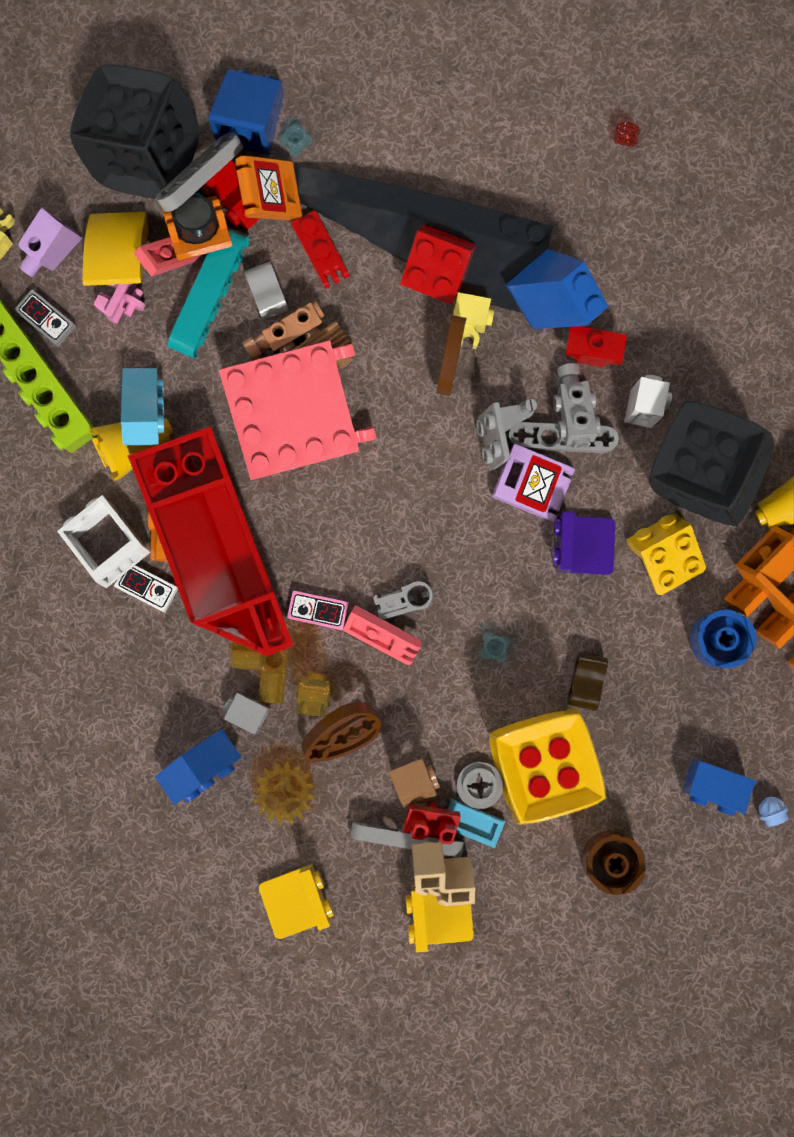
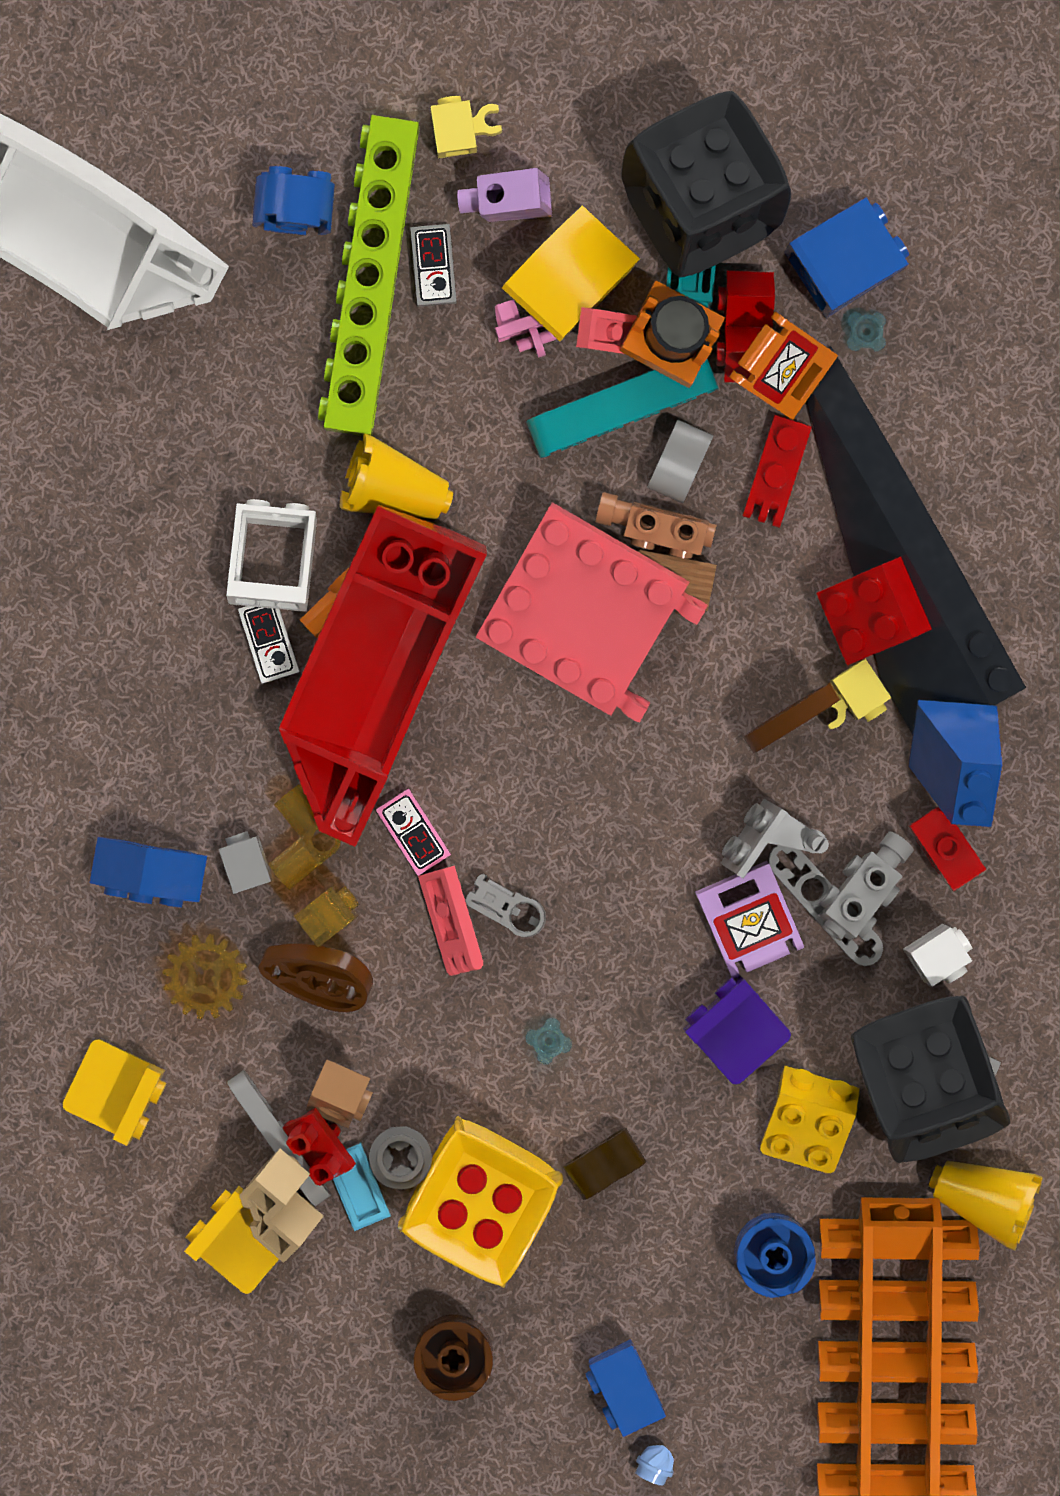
camera: 45 degrees right, 5 degrees up
(140, 406) = (440, 464): medium azure brick -> none
(199, 172) = (685, 287): light grey beam -> none

